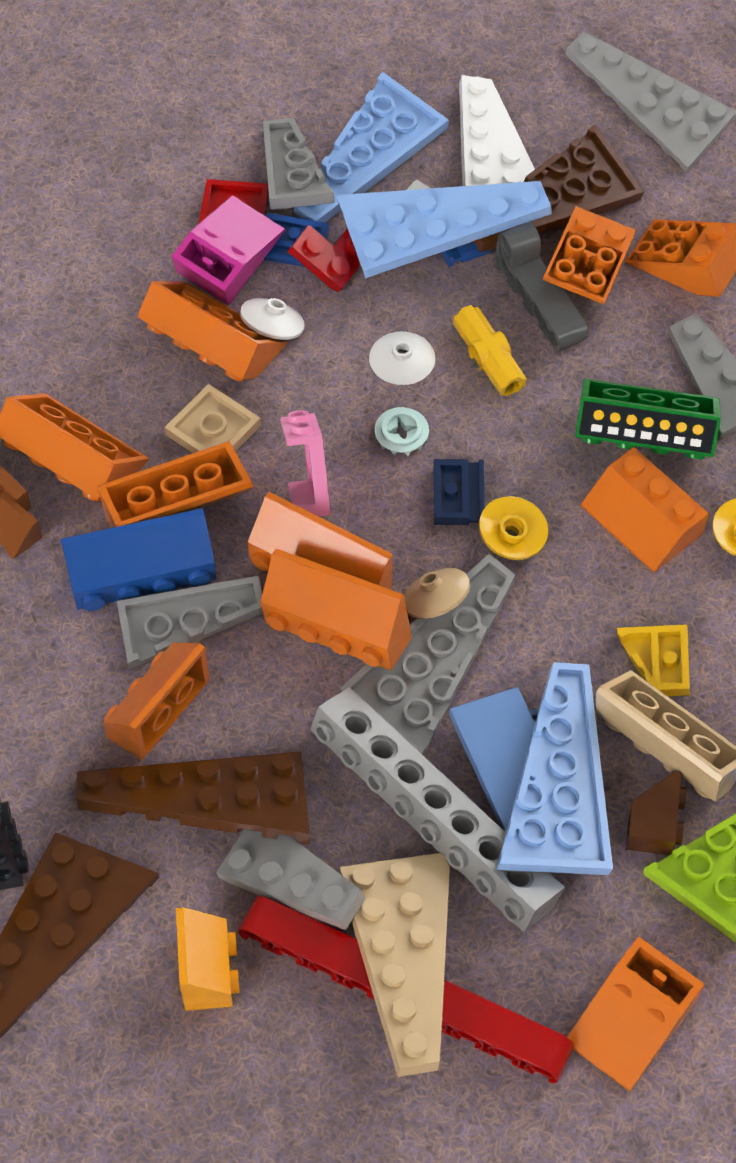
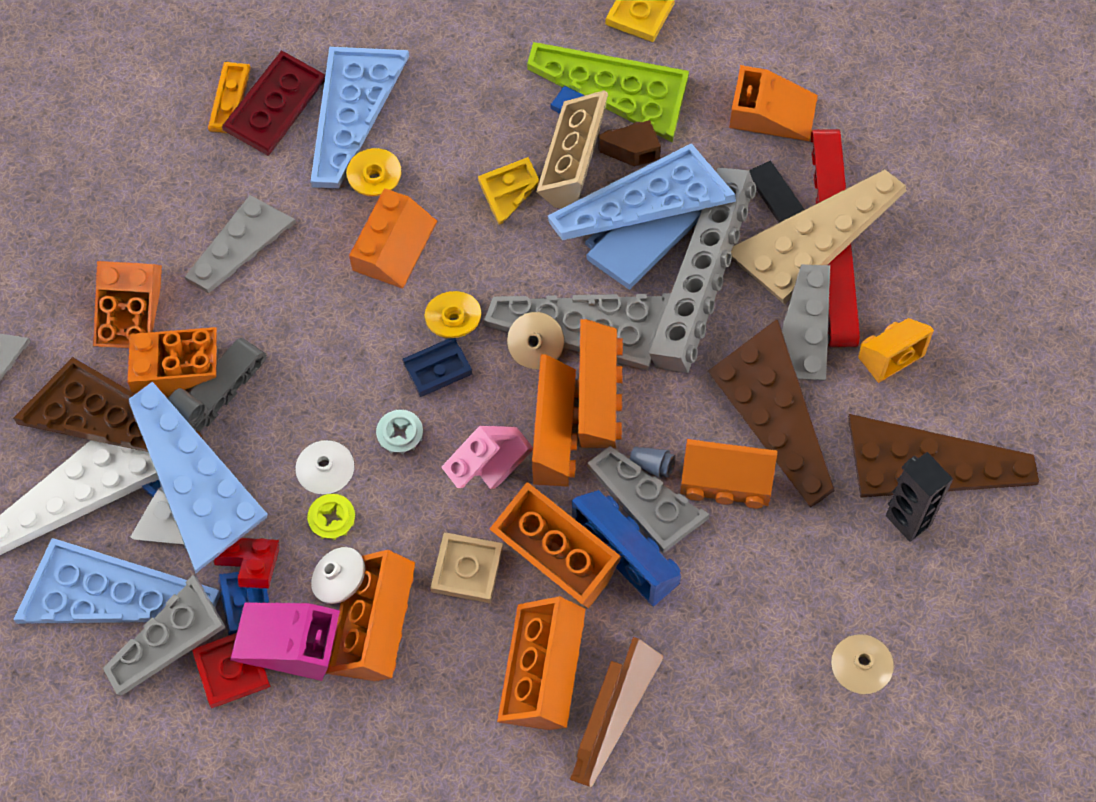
camera: 115 degrees left, 5 degrees up
(225, 643) = (655, 461): none -> sand blue cone
(341, 328) = (325, 505): none -> neon yellow gear
(489, 350) = (292, 401): yellow piece -> none
(499, 957) = (775, 191): none -> black tile
(648, 418) = (315, 258): brick -> none

